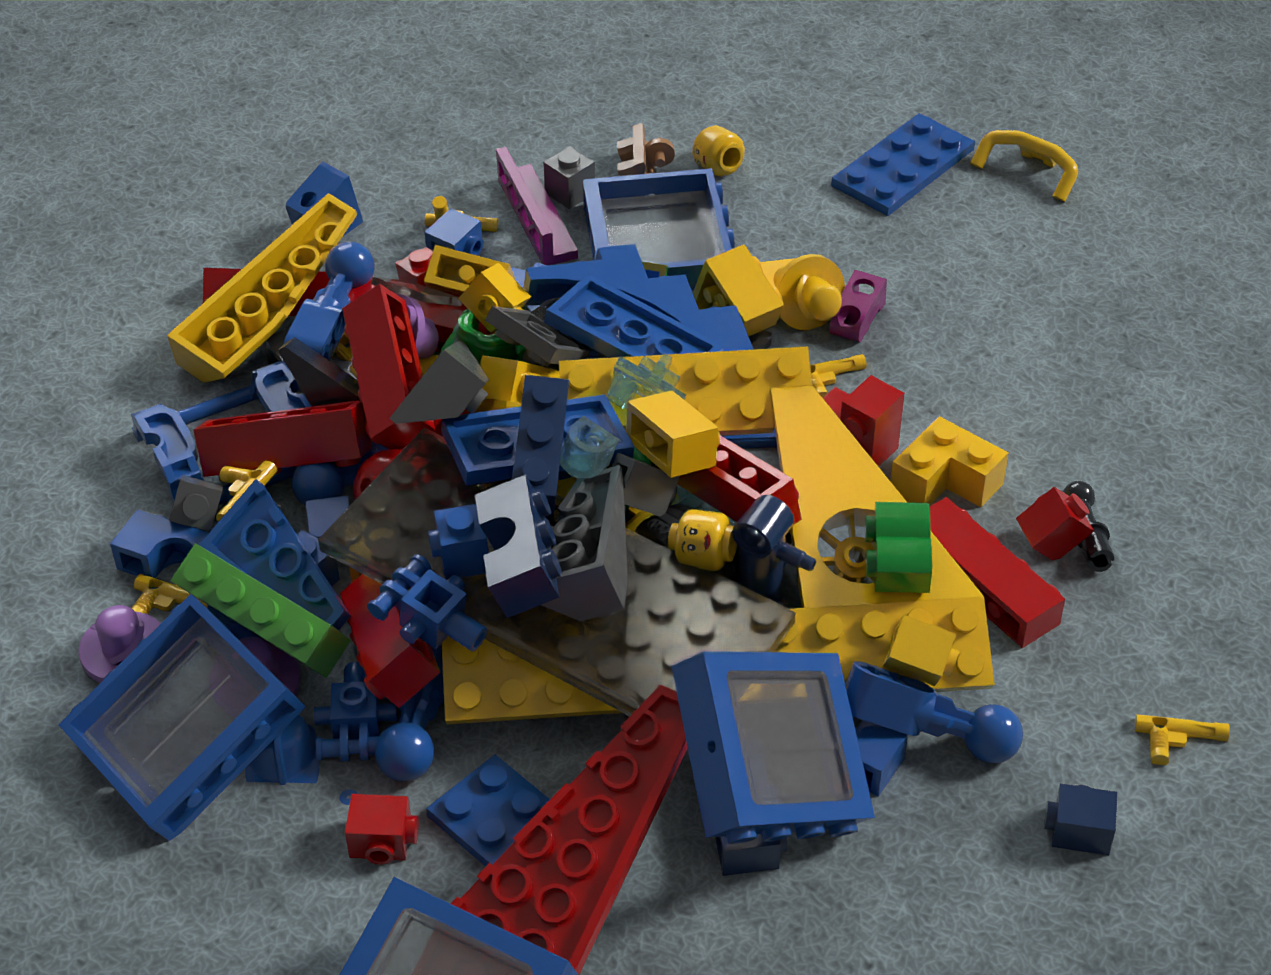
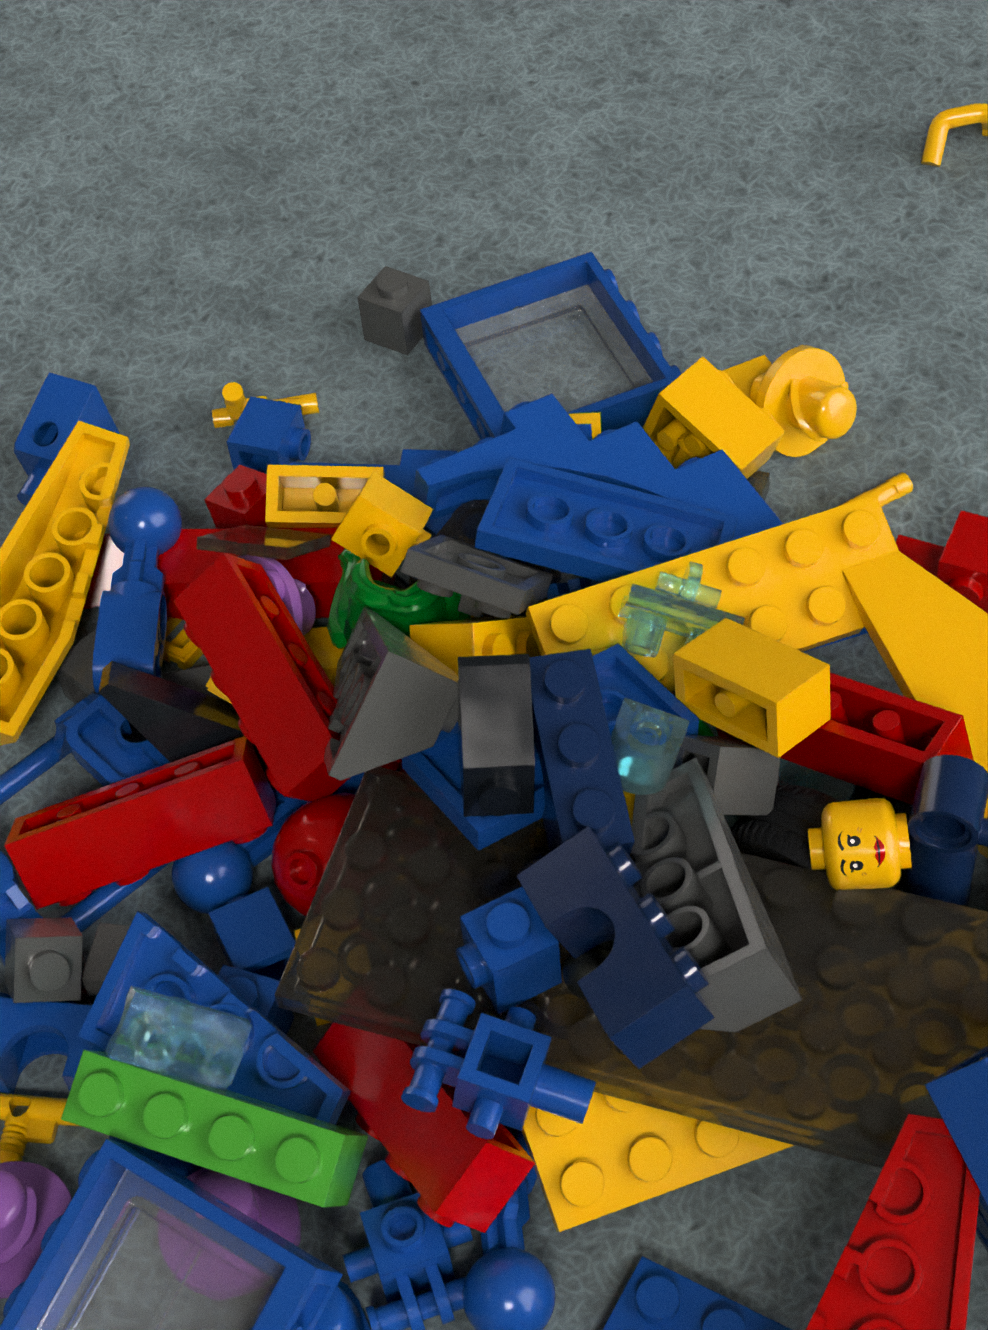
camera: 10 degrees left, 5 degrees up
(242, 479) = (110, 915): yellow hose -> none
(254, 551) = (179, 1038): none -> clear light blue hips
(493, 415) = (496, 735): none -> black slope
(535, 210) = (363, 370): fence -> none
(642, 156) = (482, 253): medium nougat hips -> none
(719, 150) = (584, 223): yellow head -> none
(858, 307) = (874, 404): magenta leg -> none
(903, 164) = (834, 184): blue plate -> none

